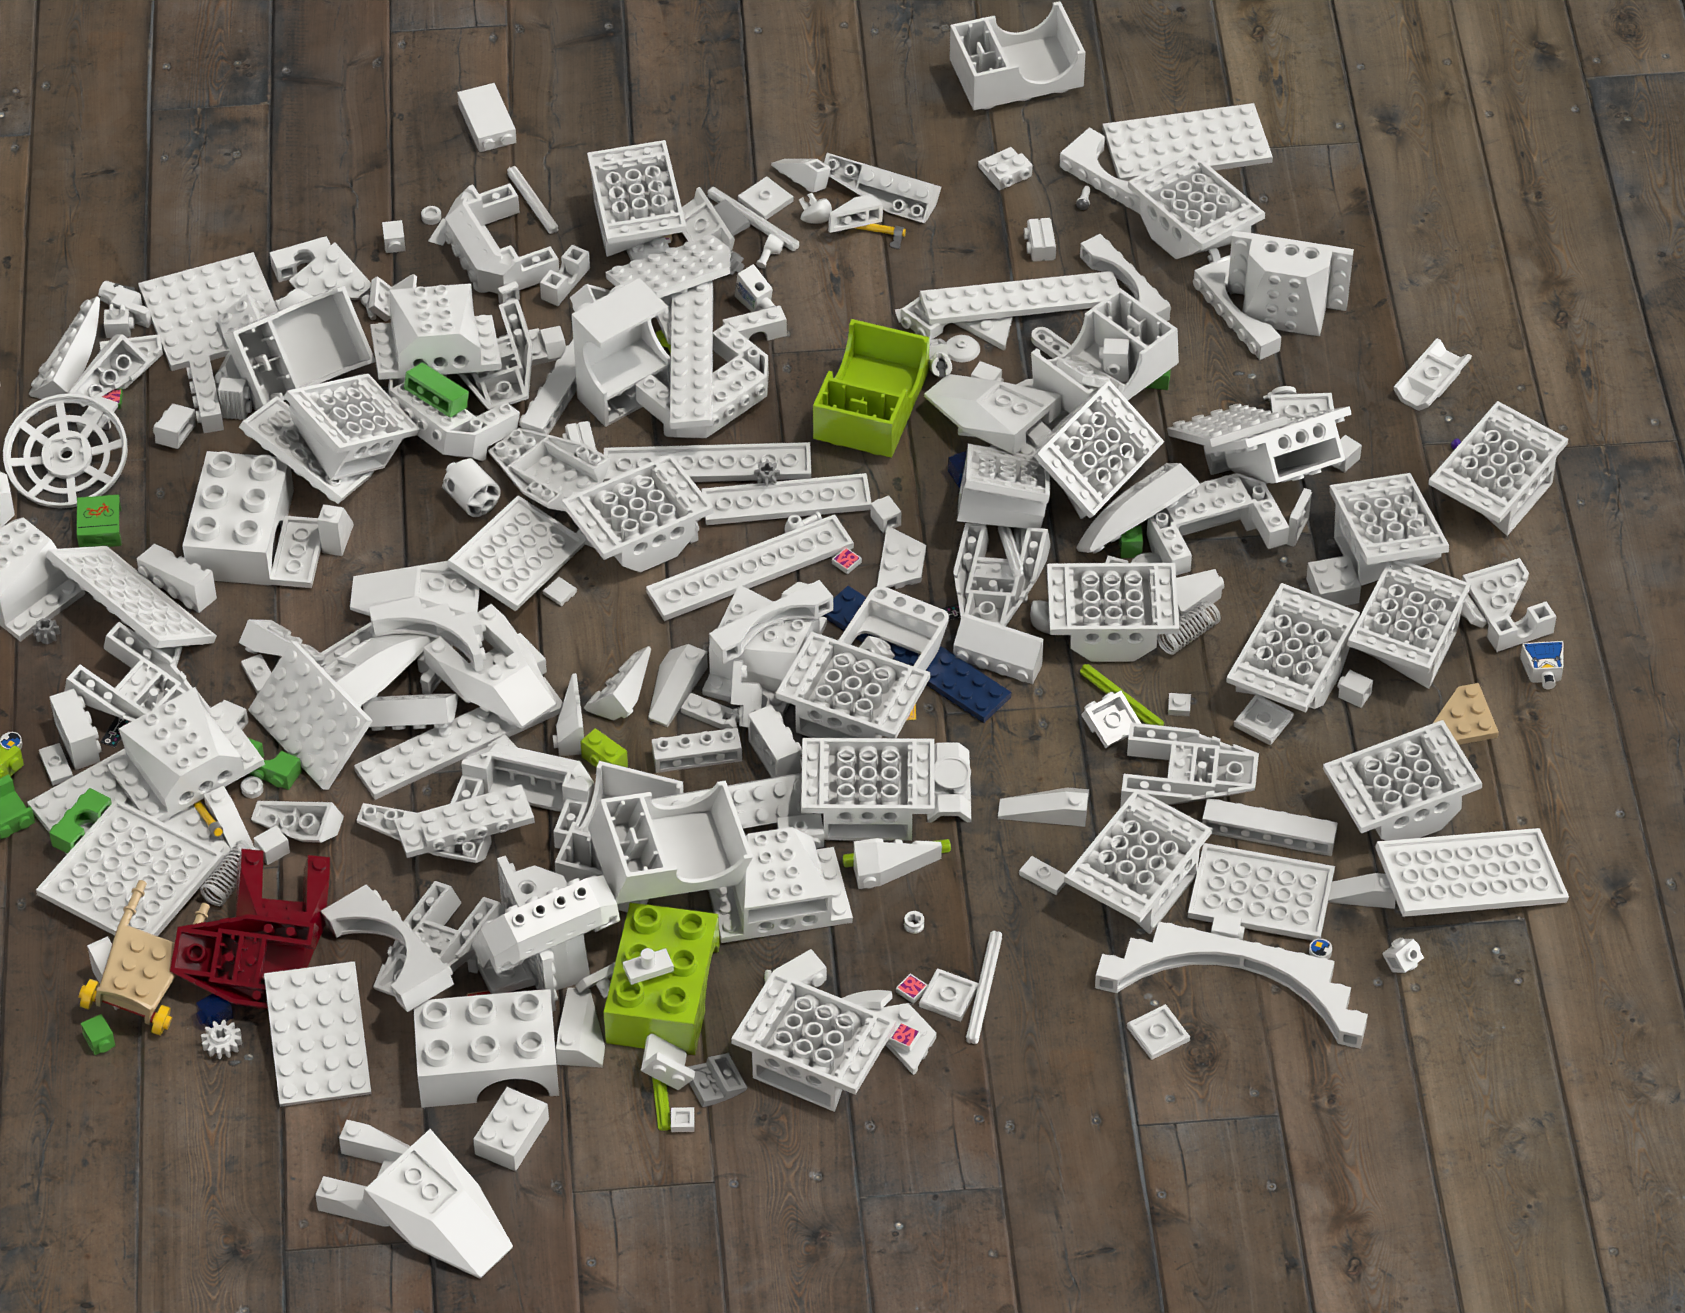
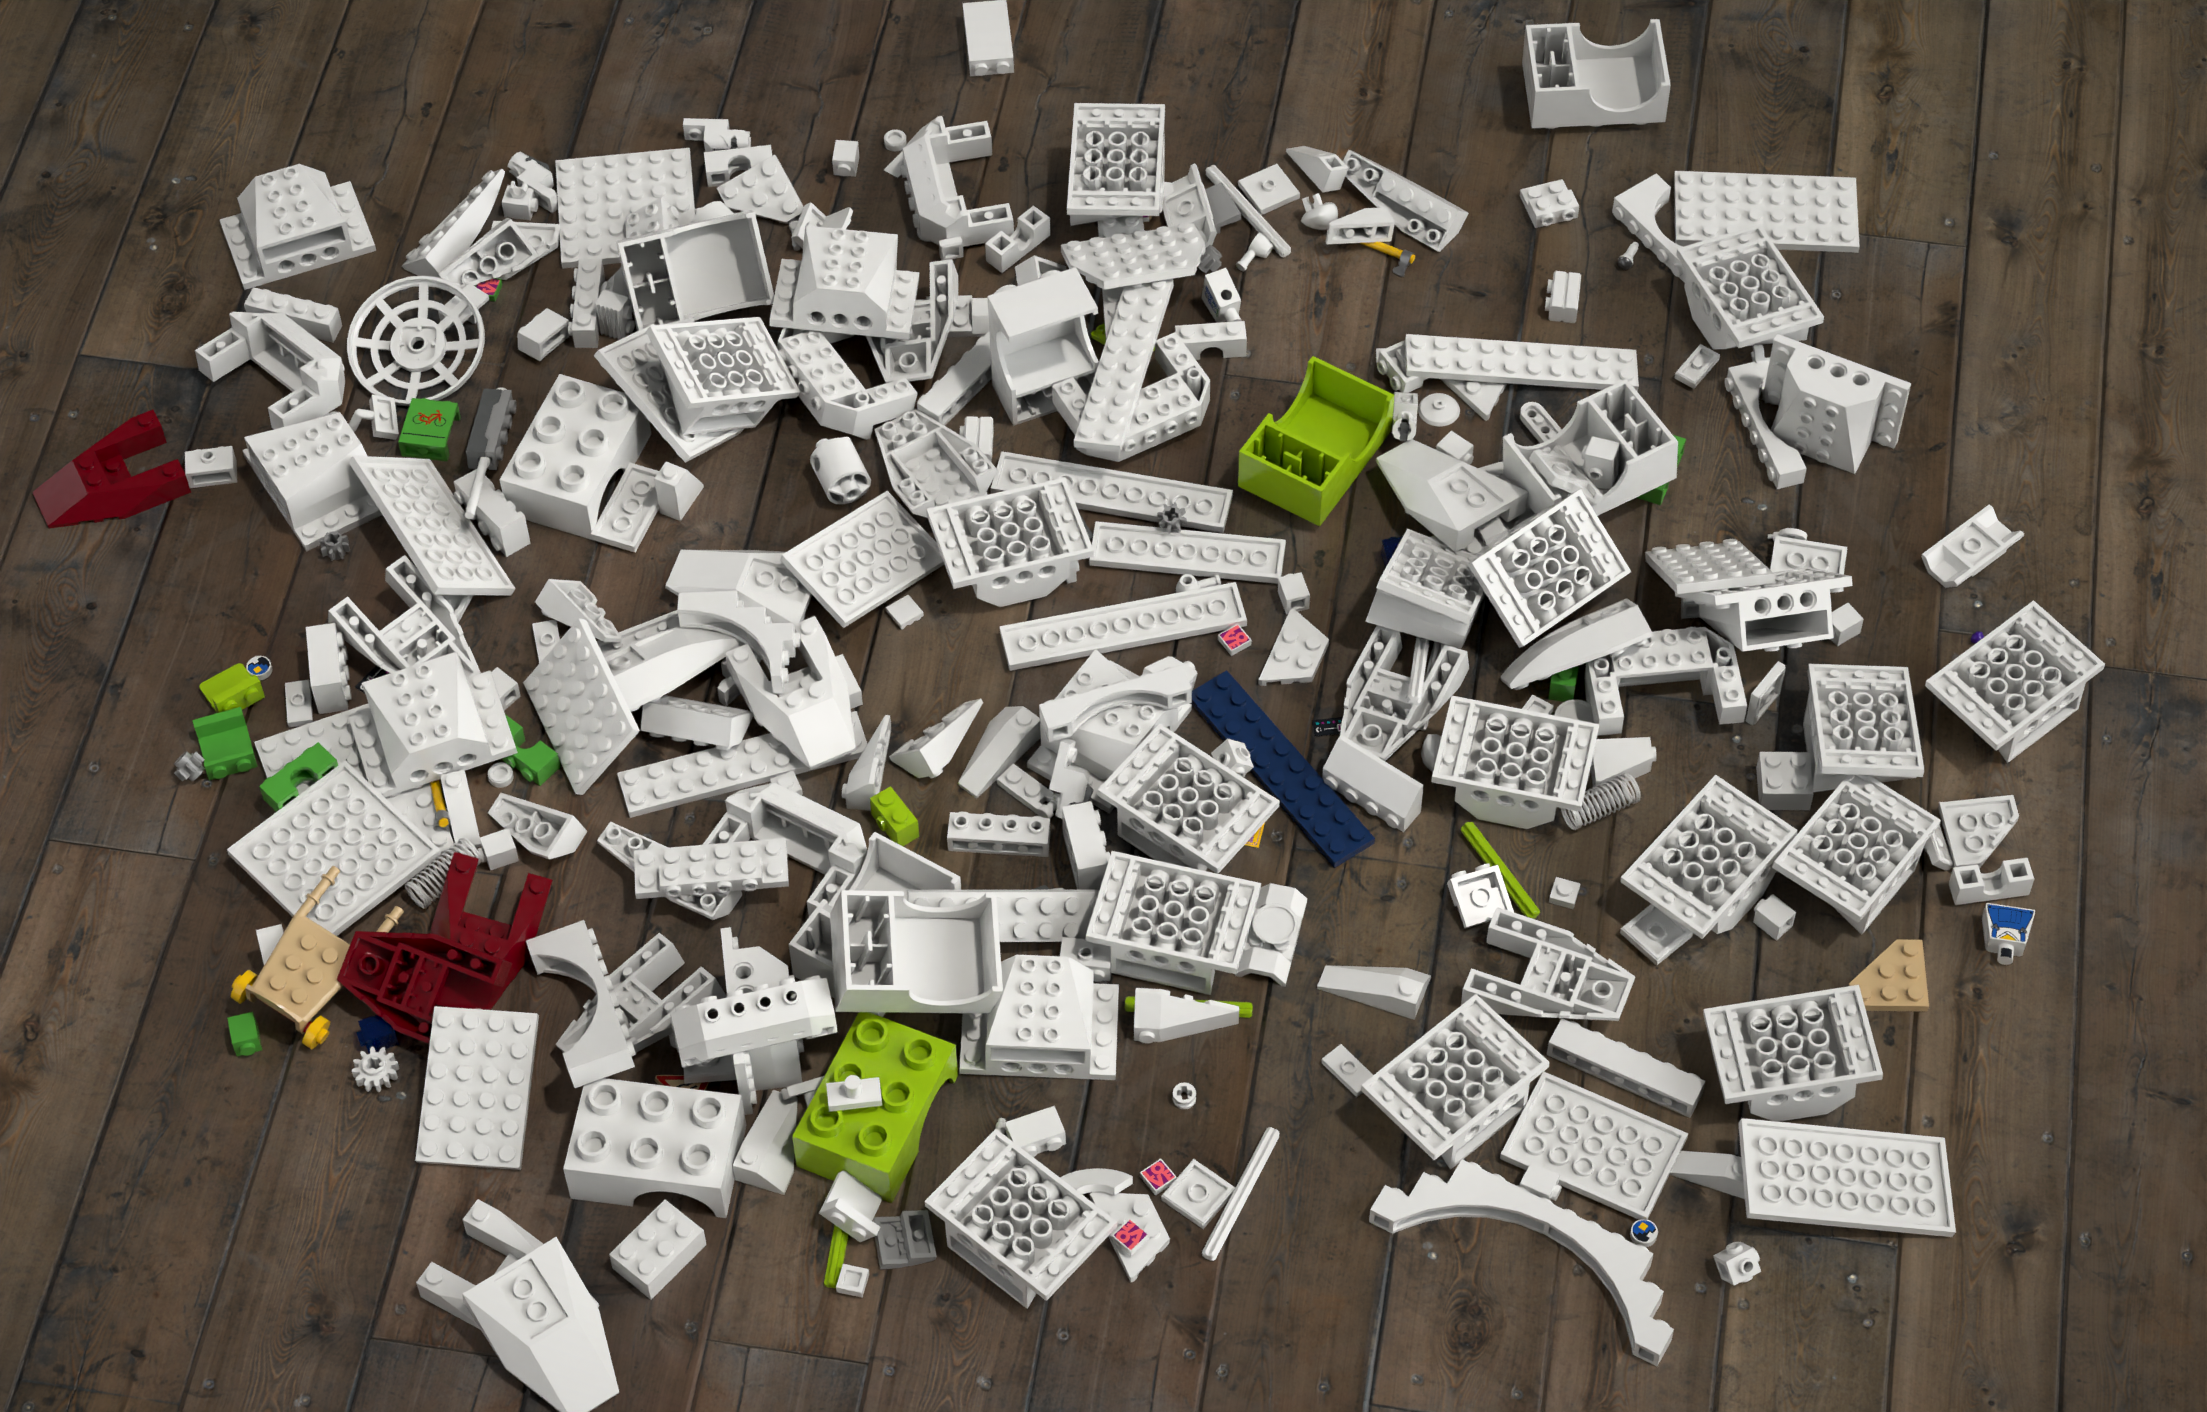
camera: 15 degrees right, 5 degrees up
(54, 518) = (382, 415): none -> white plate
(156, 518) = (488, 438): none -> piece
(273, 236) = (715, 134): none -> white plate
(436, 390) = (827, 351): bright green brick -> none
(532, 199) = (1010, 143): white axle -> none
(901, 622) = (1269, 729): white windscreen -> none
(1102, 256) = (1629, 331): white arch -> none
(1158, 1032) = (1426, 1293): white tile -> none
(1167, 274) = (1697, 366): none -> white plate

